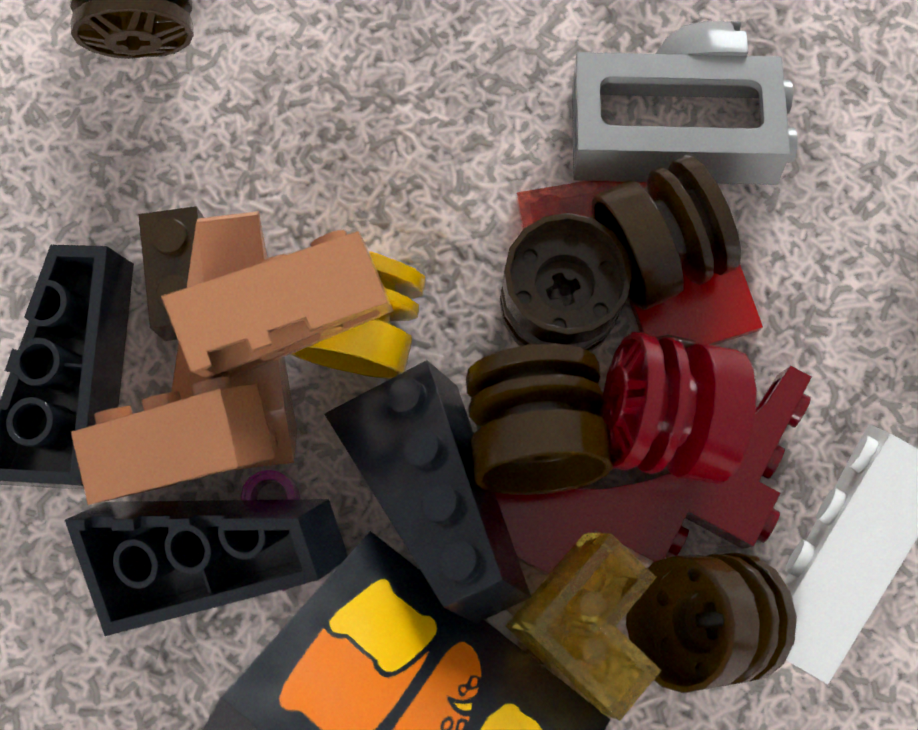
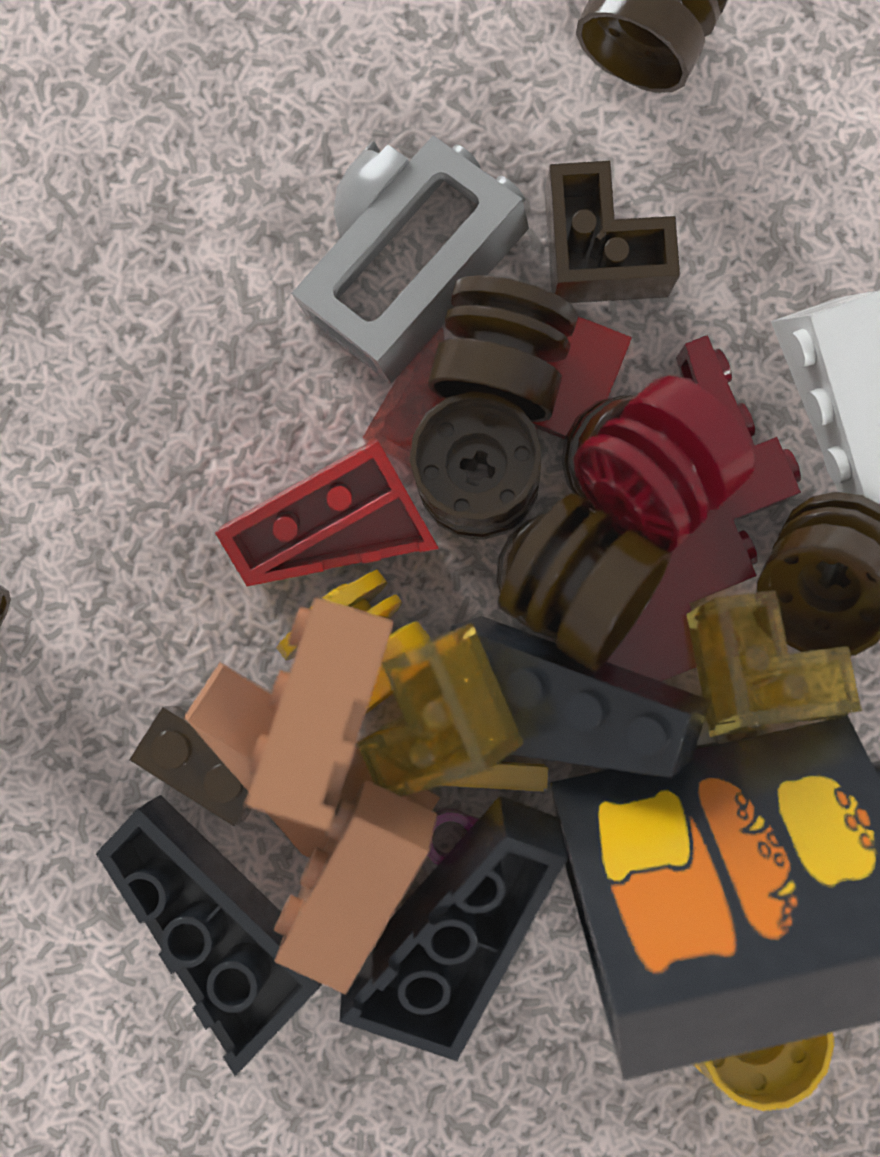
camera: 45 degrees left, 5 degrees up
(339, 483) = (508, 776): none -> yellow tile
(357, 405) = (450, 719): none -> clear yellow brick
(434, 214) = (328, 521): none -> red wedge
(800, 247) = (600, 255): none -> dark brown brick

